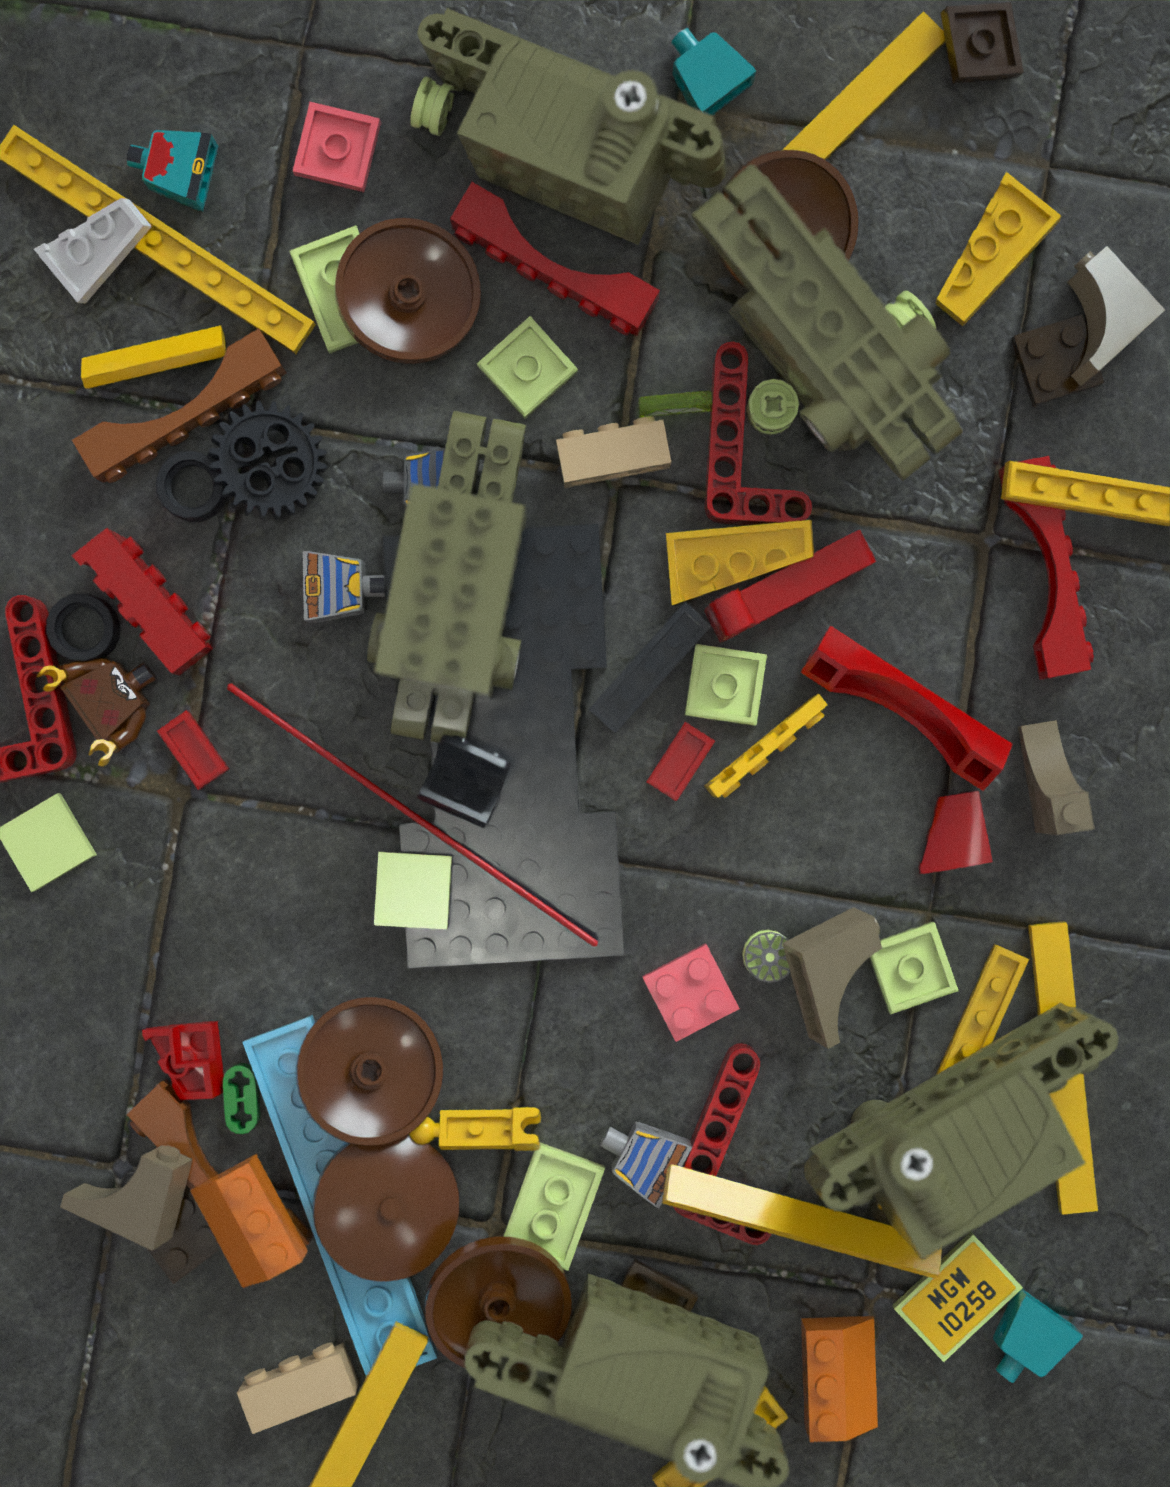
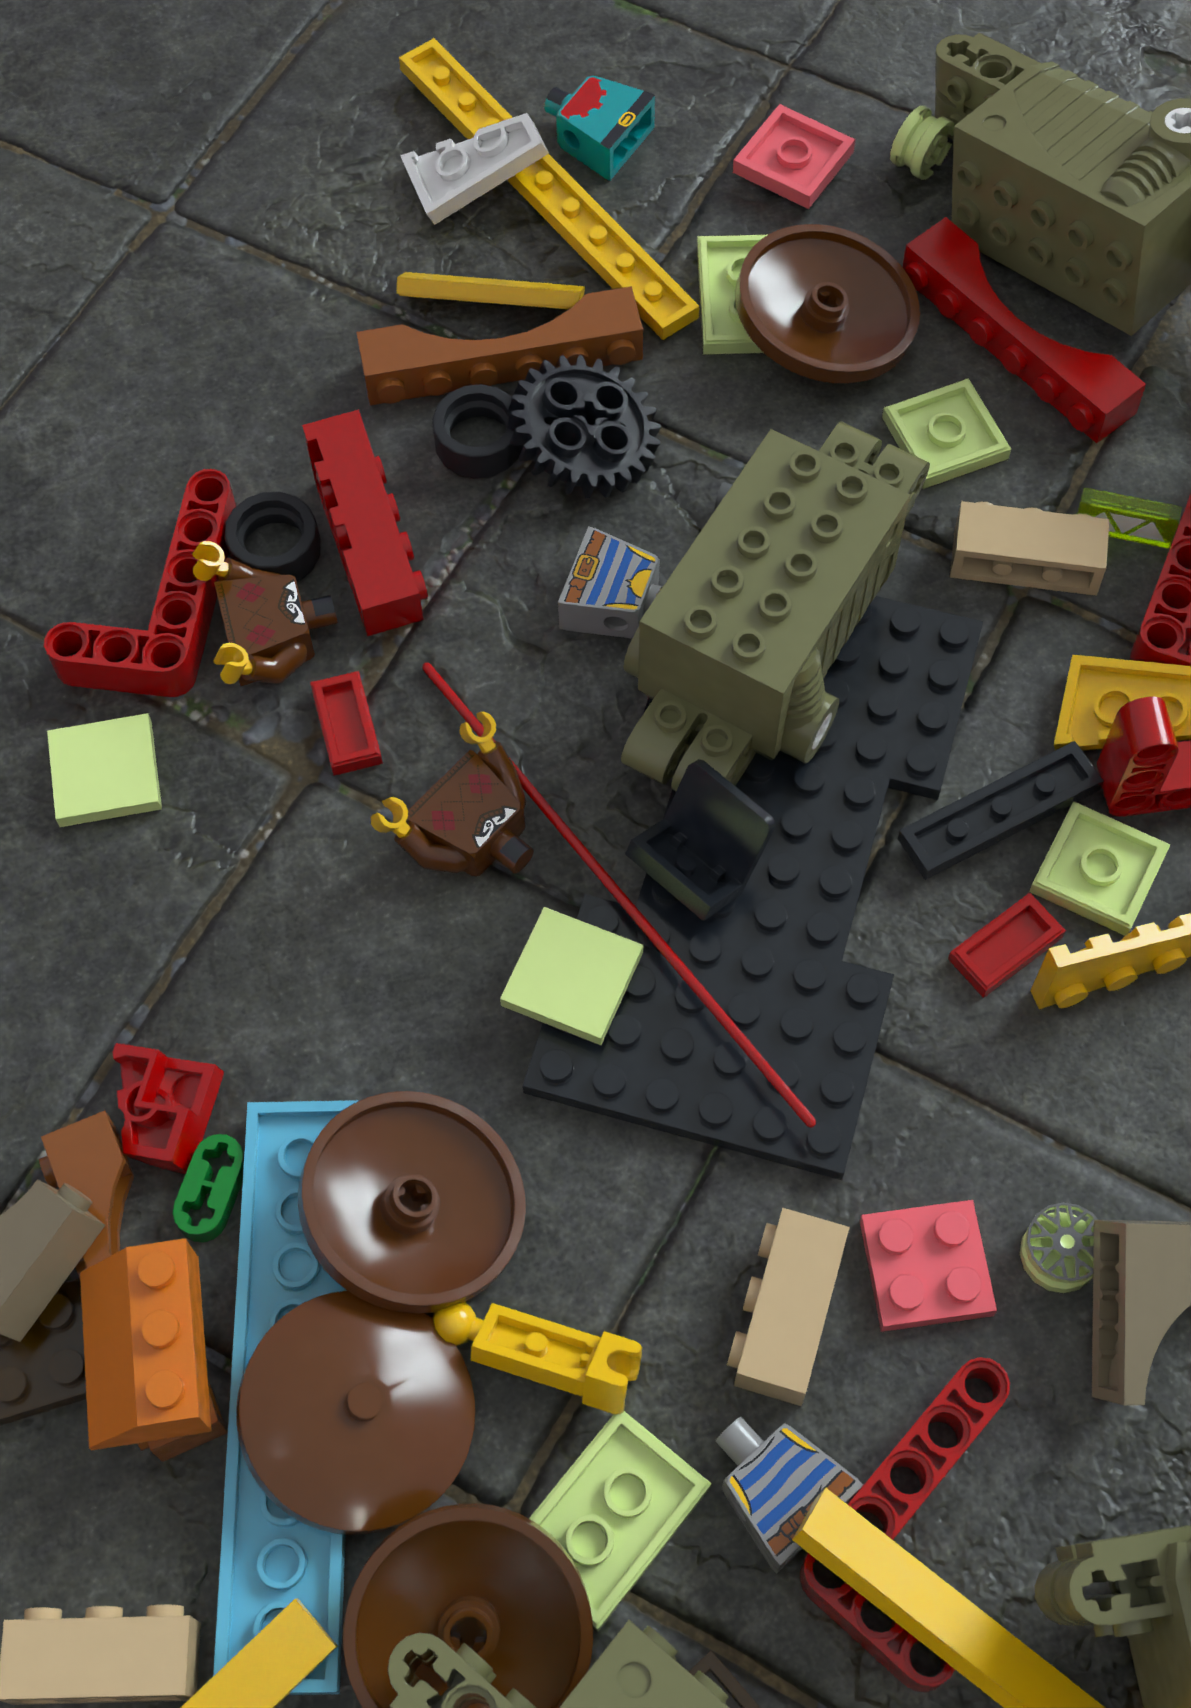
camera: 20 degrees right, 25 degrees down
(302, 797) = (467, 814): none -> reddish brown torso
(616, 1051) = (788, 1306): none -> tan brick

